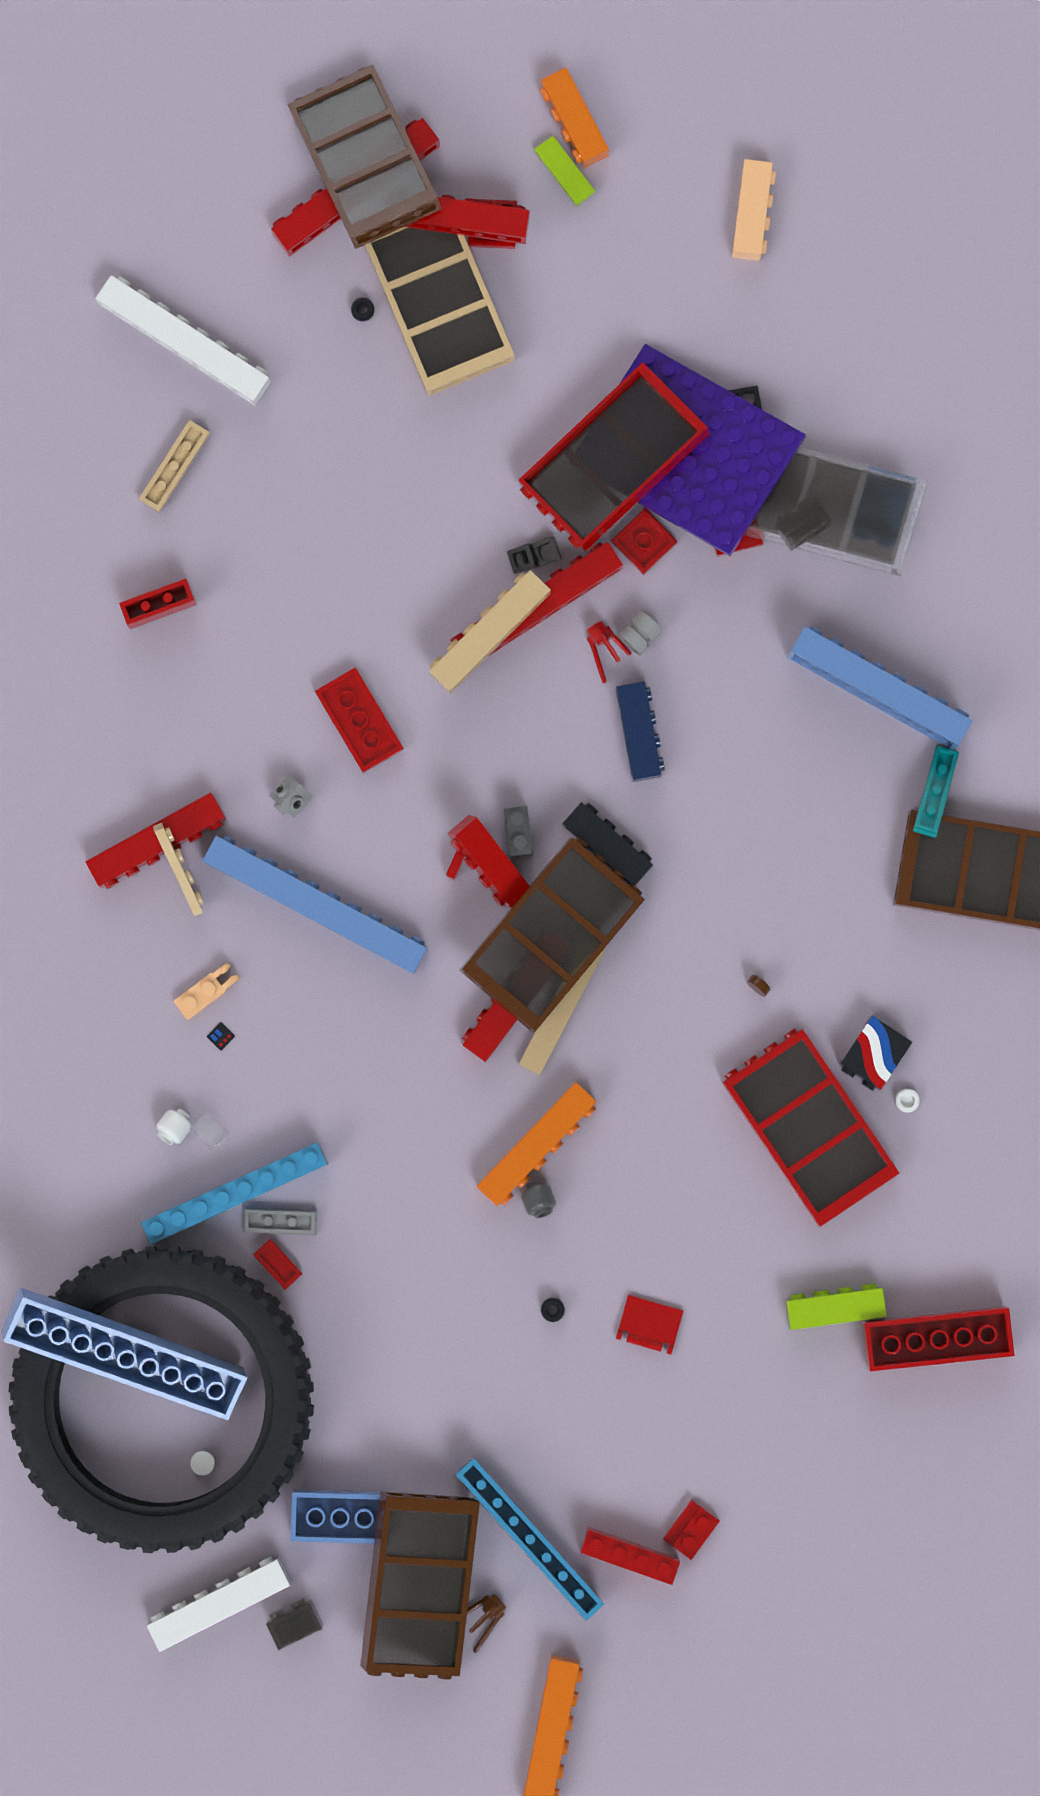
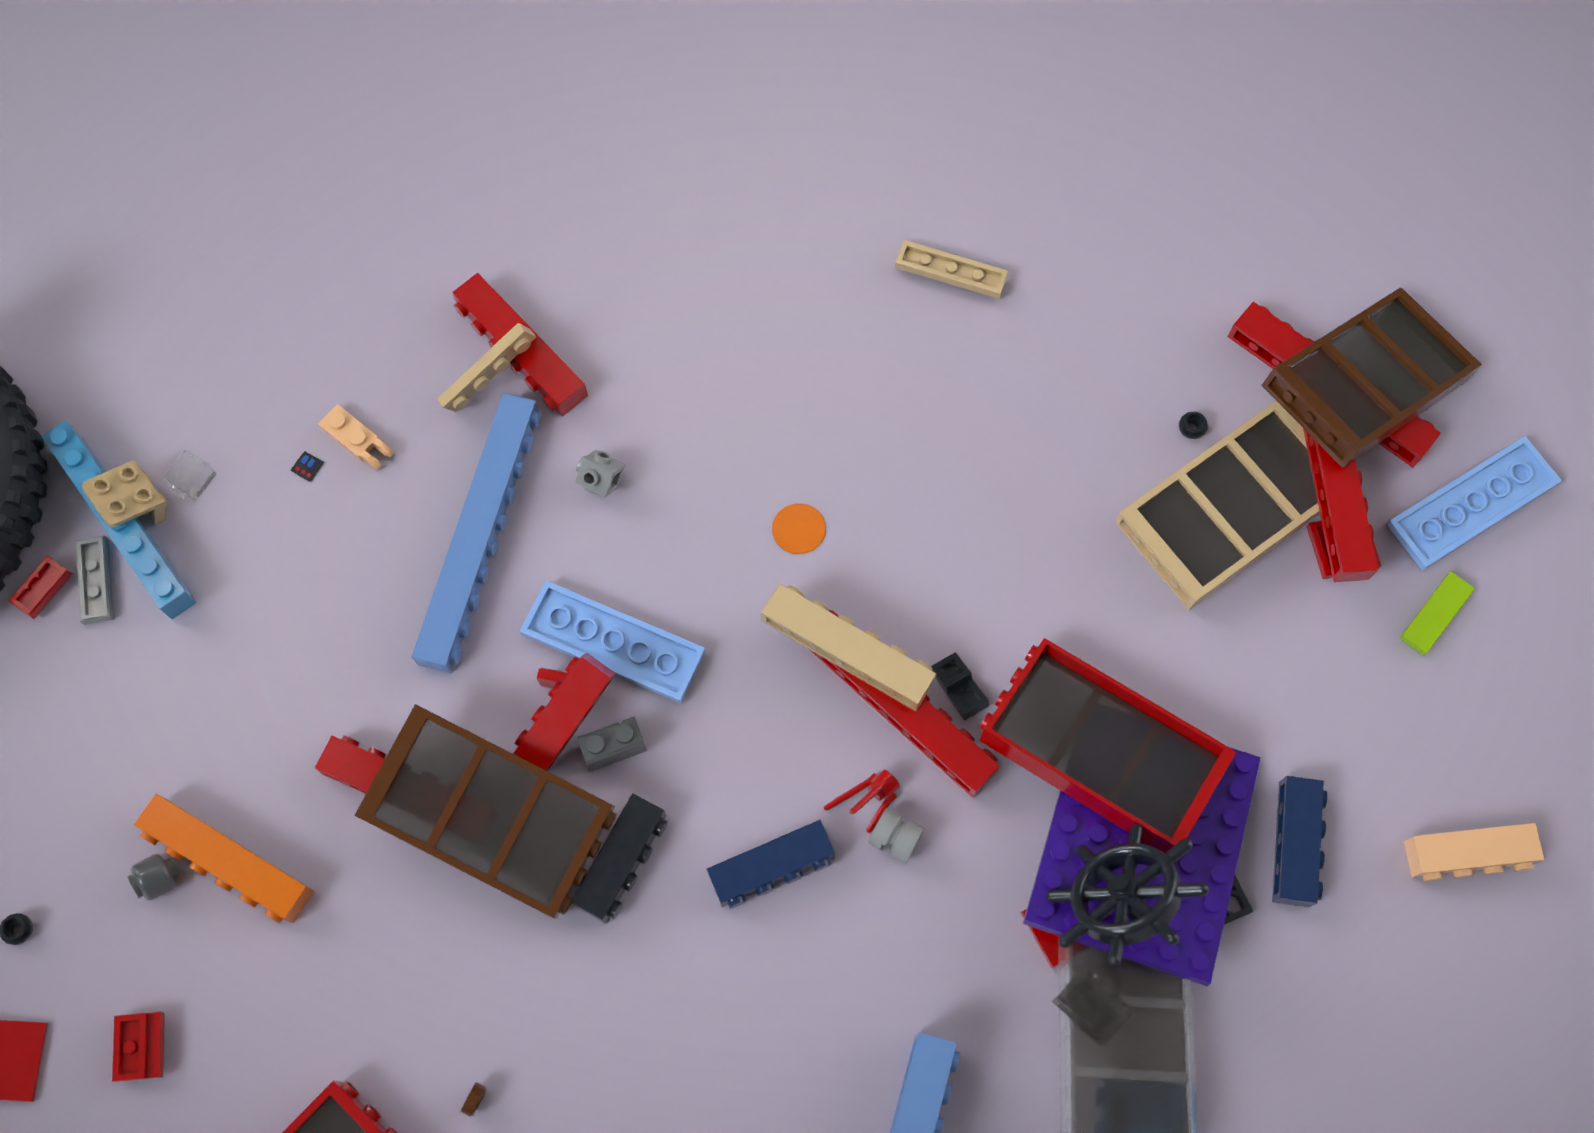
camera: 75 degrees right, 15 degrees down
(157, 603) = (789, 283): red brick -> none
(173, 1126) = (189, 435): white head -> none
(183, 340) = (1095, 247): white brick -> none
(221, 1181) = (125, 495): none -> tan bracket
(359, 720) = (708, 530): red plate -> none
(372, 648) = (798, 528): none -> orange sticker
(434, 815) = (615, 639): none -> light blue plate
(483, 110) = (1473, 503): none -> light blue plate
(552, 1028) = (379, 845): tan tile -> none
(574, 118) = (1505, 608): orange brick -> none
(644, 541) = (1013, 815): red tile -> none
(663, 1226) = (138, 1046): none -> red plate
(715, 335) = (1299, 841): none -> dark blue brick
(733, 476) = (1126, 894): none -> black piece

